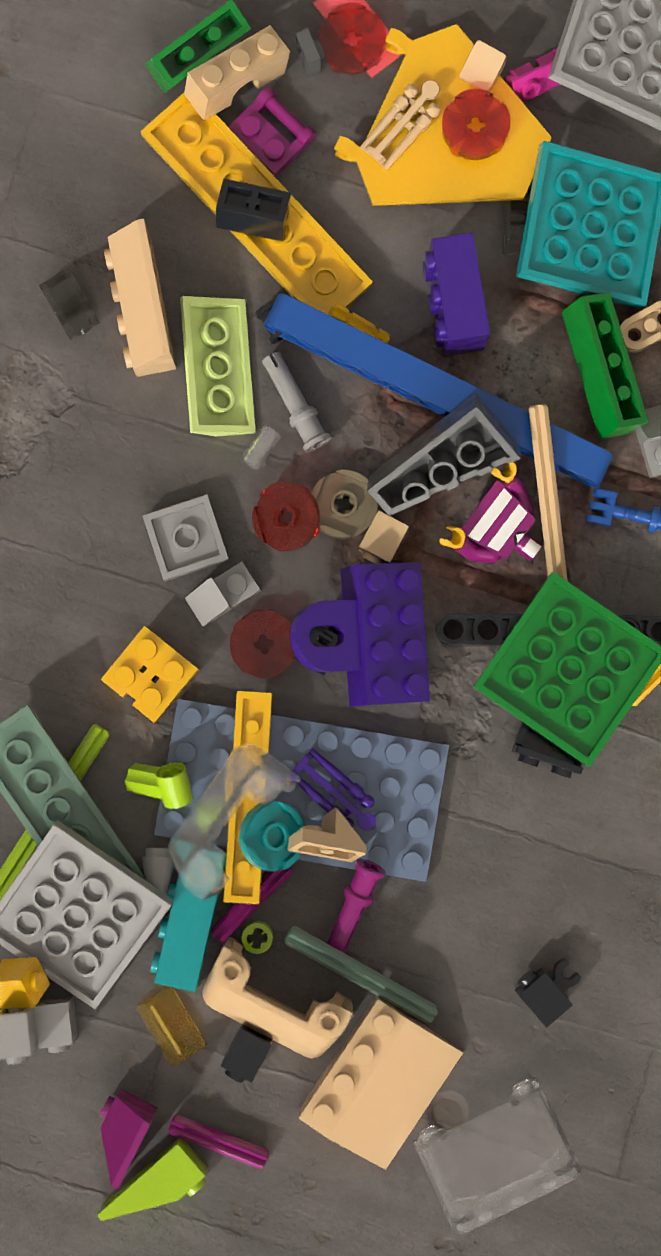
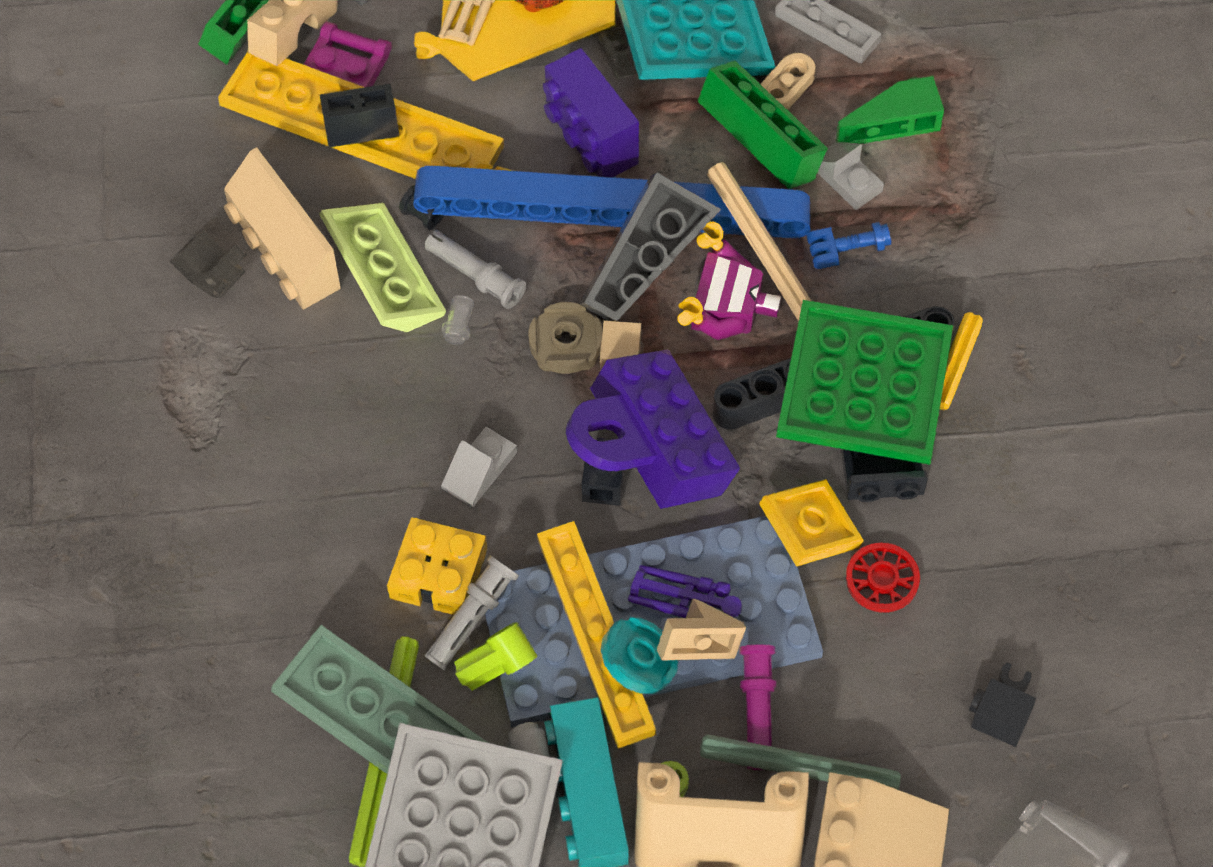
camera: 20 degrees left, 25 degrees down
(169, 726) = (481, 597): none -> light grey pin
(185, 538) = (418, 427): light grey plate -> none
(191, 848) = (567, 682): clear windscreen -> none
(241, 911) = (646, 749): magenta axle -> none
(252, 660) = (543, 475): clear red plate -> none
(304, 520) = (533, 370): clear red plate -> none
(469, 766) = (811, 522): none -> yellow tile
(506, 836) = (882, 577): none -> red wheel

